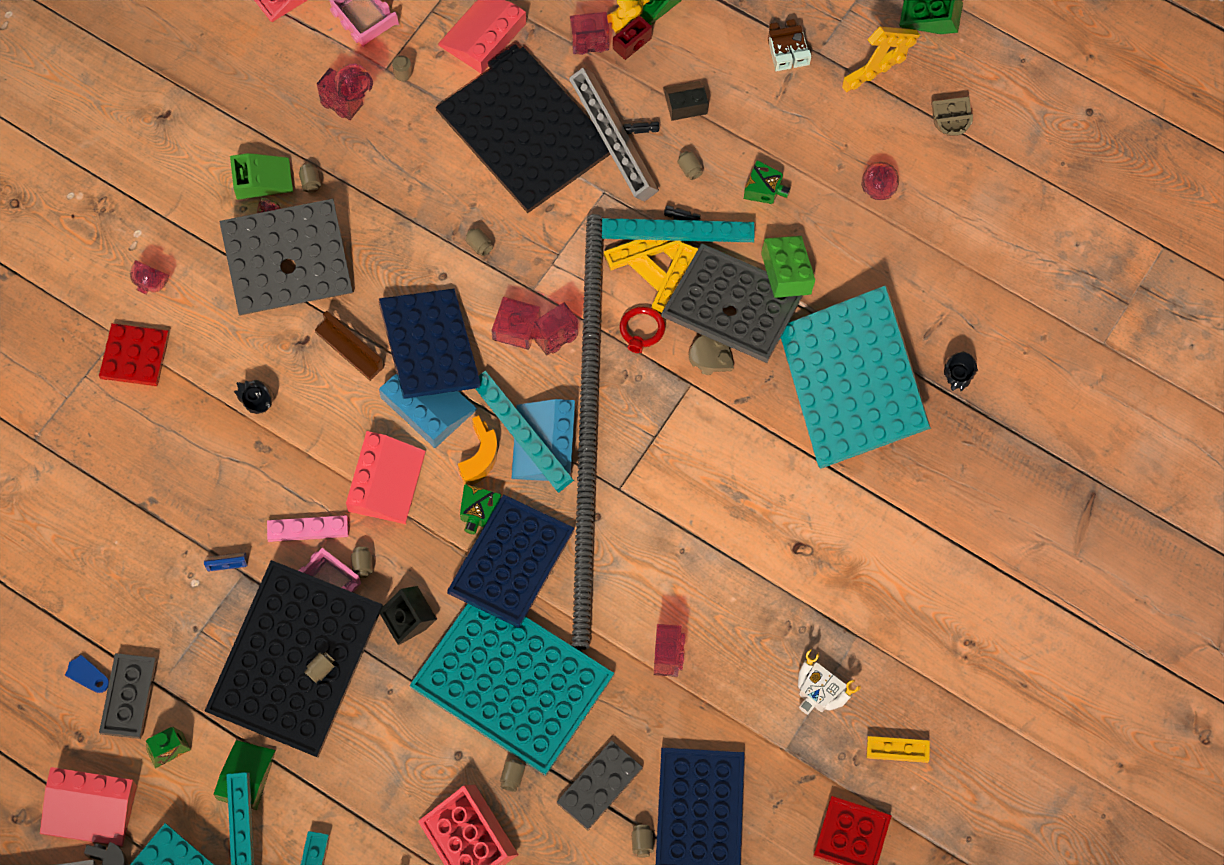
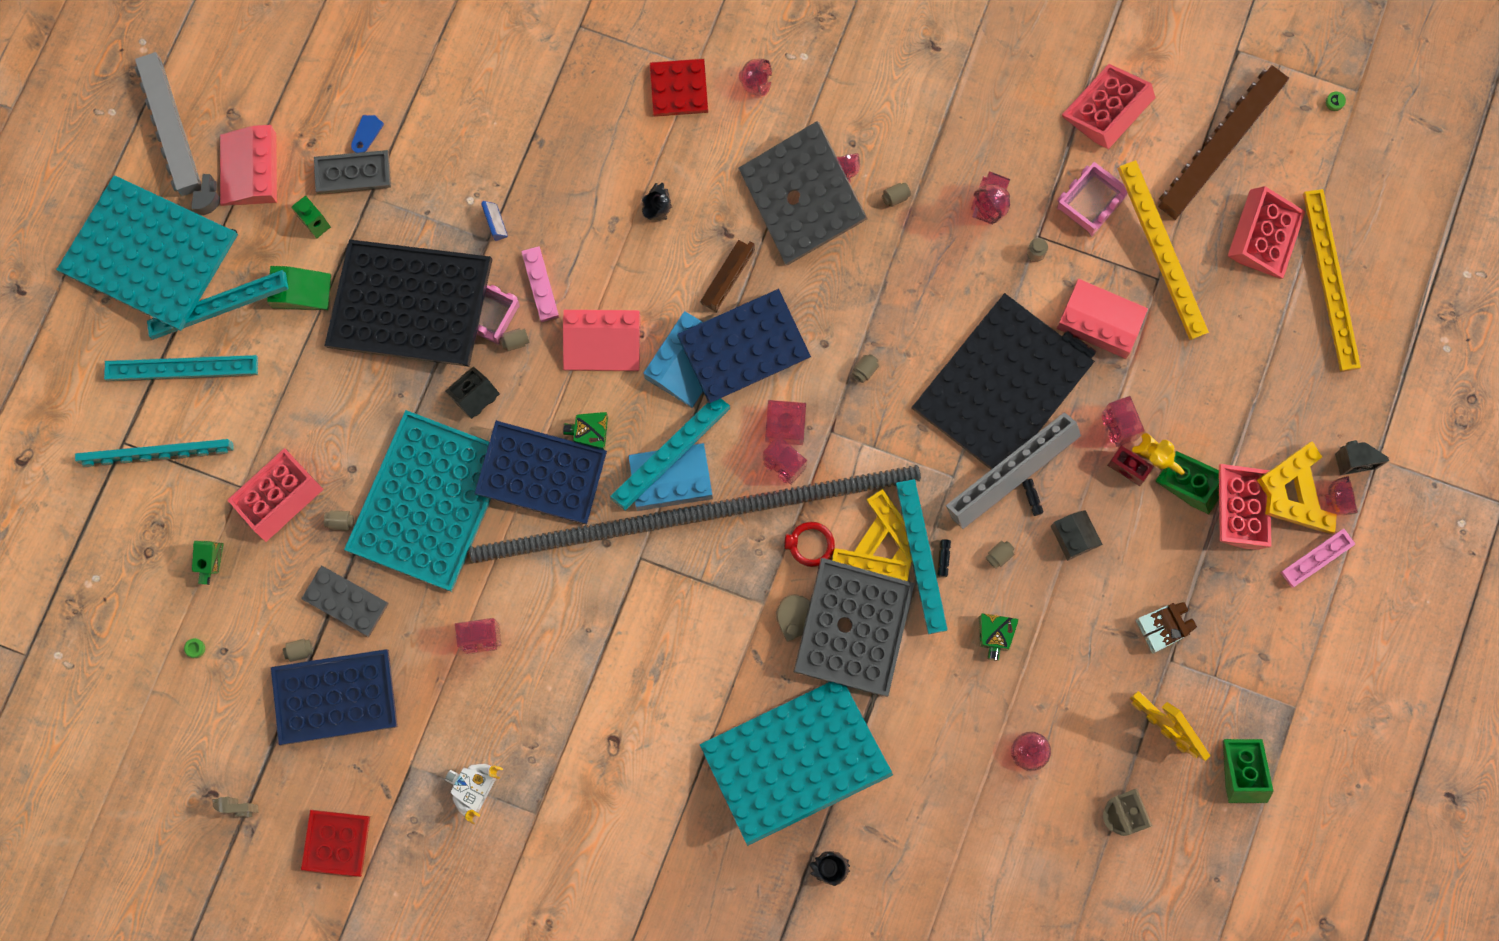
camera: 80 degrees right, 10 degrees up
(260, 175) = (886, 148): bright green slope -> none
(319, 667) = (398, 325): dark tan brick -> none
(483, 461) = (644, 426): light orange arch -> none
(788, 266) = (905, 673): bright green brick -> none
(898, 749) = (426, 872): yellow plate -> none

